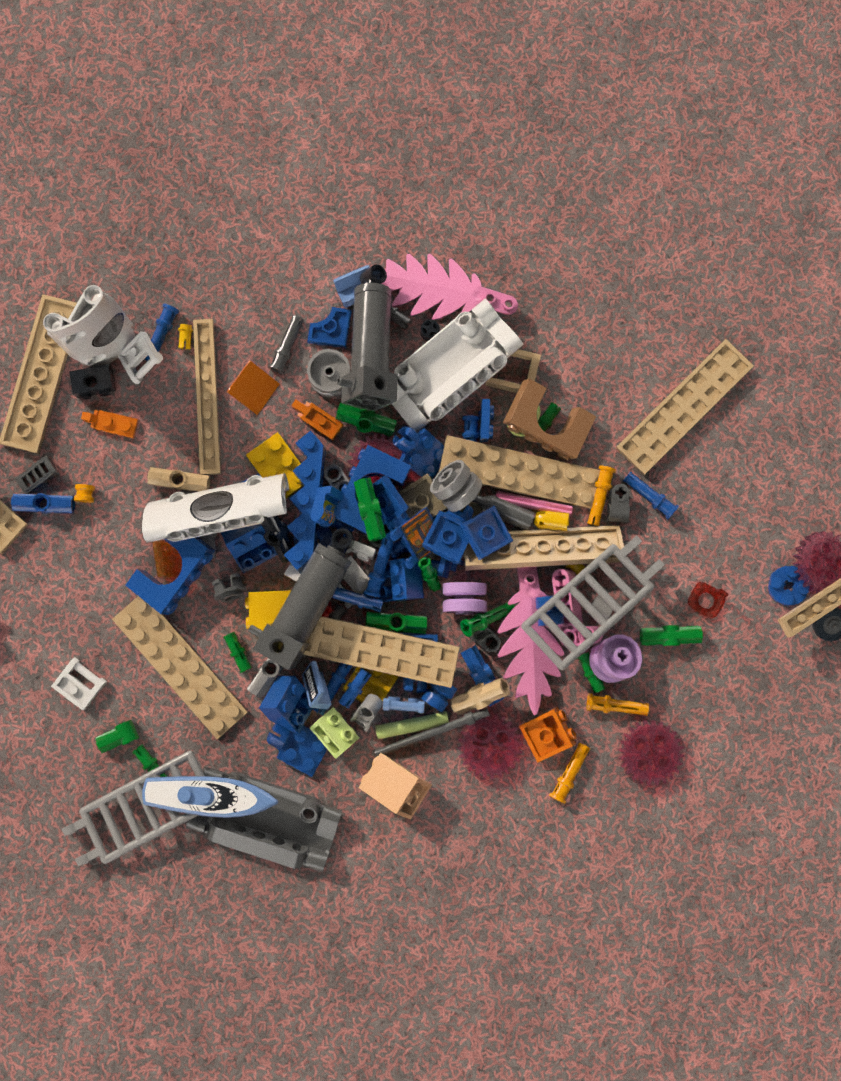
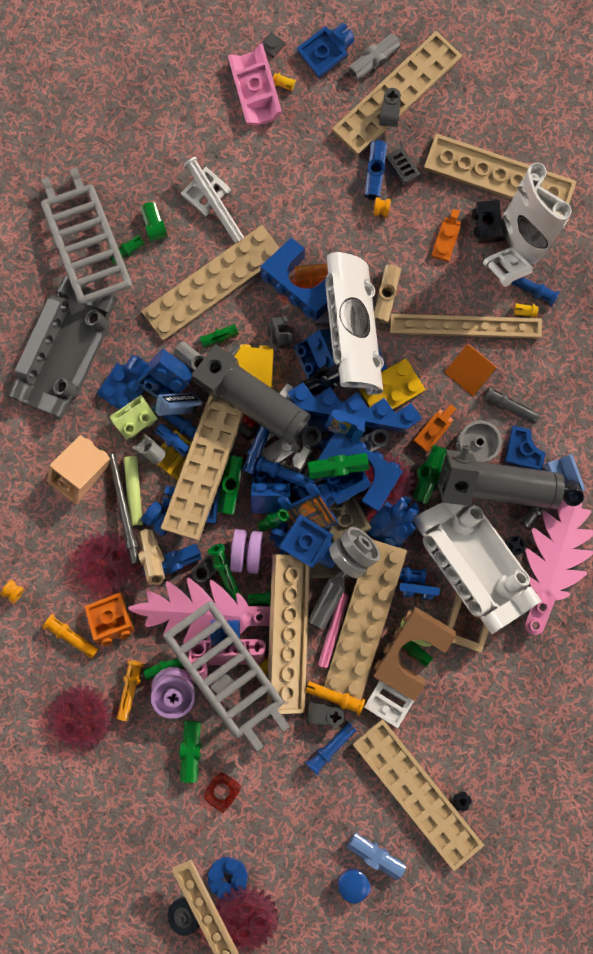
camera: 100 degrees right, 0 degrees up
(88, 672) = (214, 199): none -> white axle
(206, 796) = (87, 294): piece -> none
(412, 704) = (154, 476): medium blue plate -> none
(486, 533) = (306, 578): blue tile -> none
(509, 579) = (262, 598): none -> green pin
(530, 840) = (12, 591): none -> light orange wheel
(552, 520) = (314, 646): yellow piece -> none
(605, 444) = (385, 707): none -> white plate
(691, 364) = (461, 796): none -> black plate
(749, 441) = (376, 857): none -> medium blue piece
(780, 460) = (353, 885): none -> blue hair

